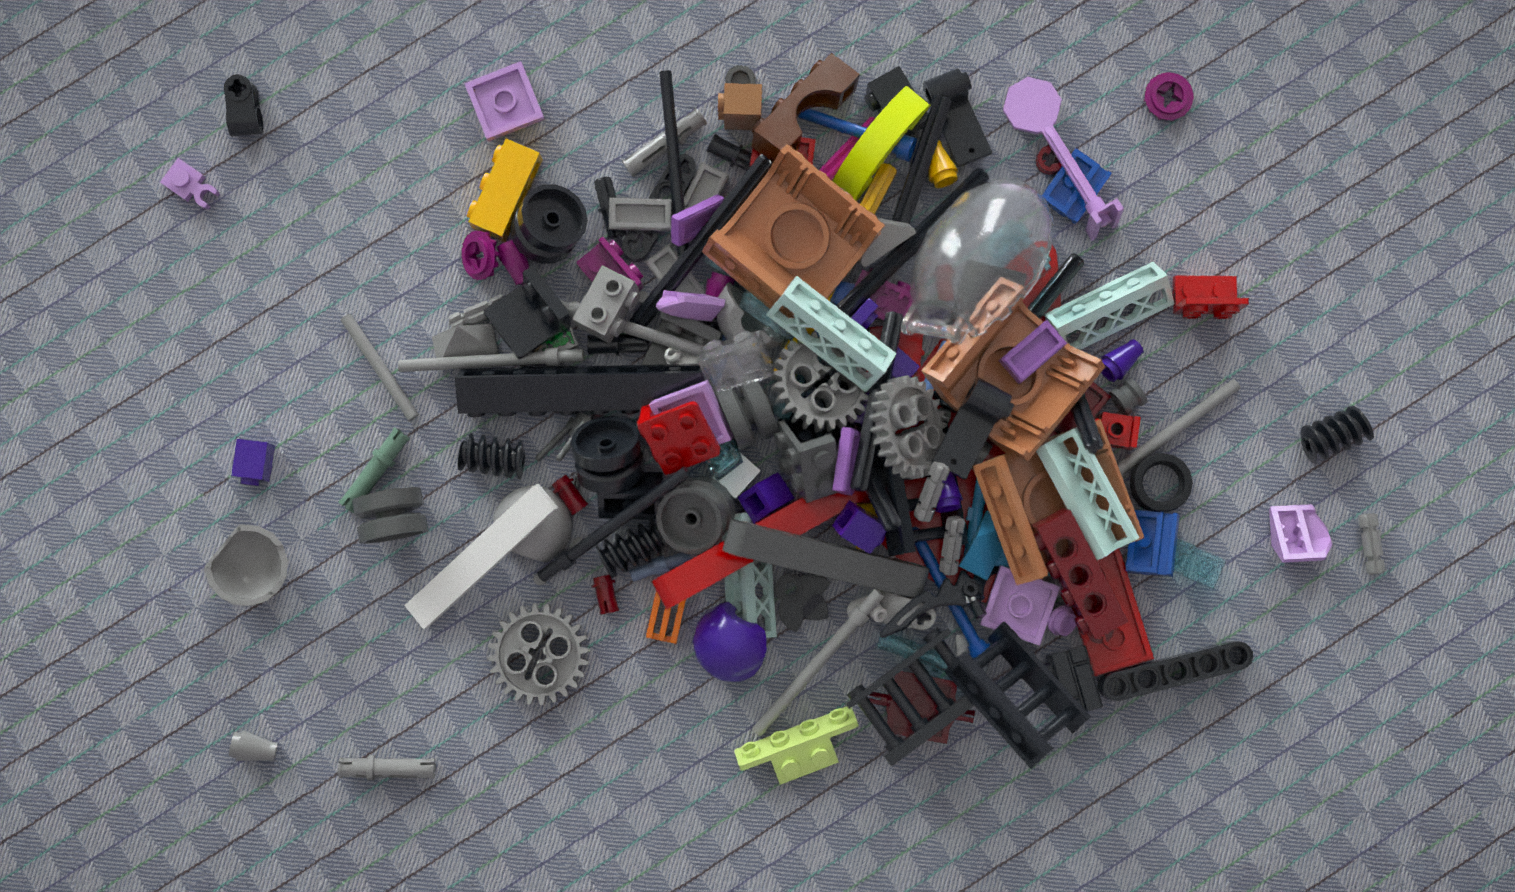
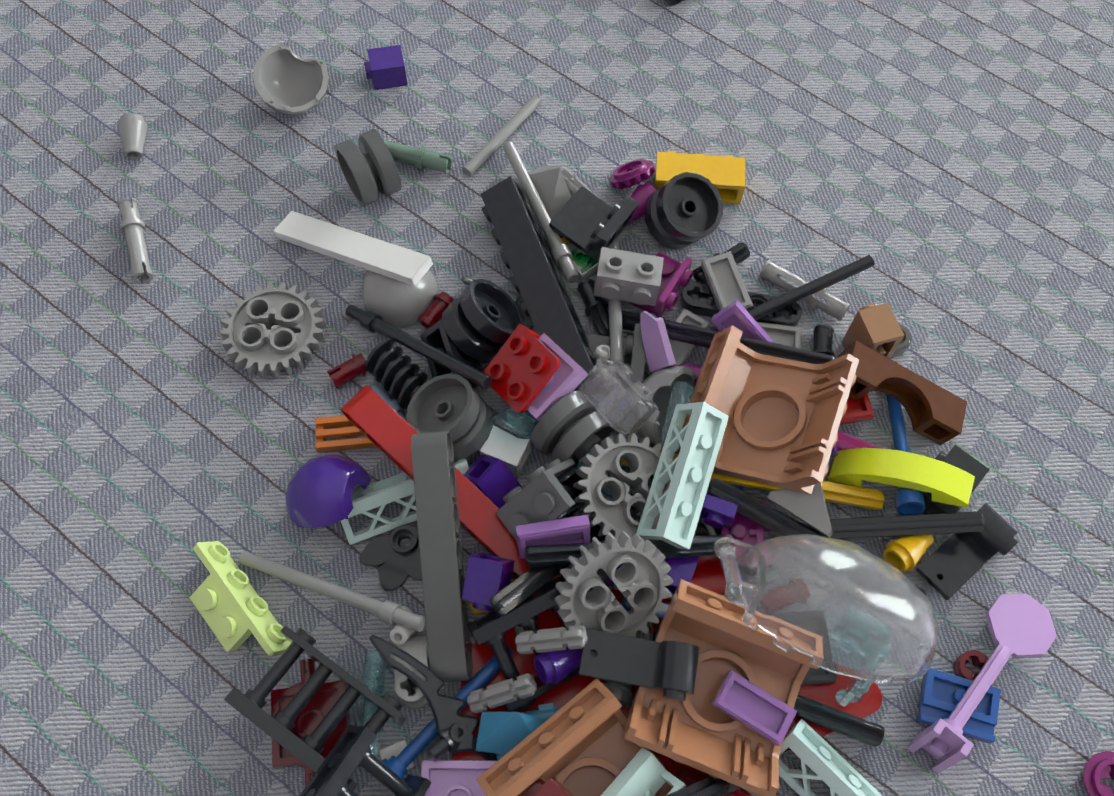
camera: 70 degrees right, 20 degrees down
(492, 455) = (451, 235): black piece -> none
(504, 101) = (777, 156): lavender plate -> none

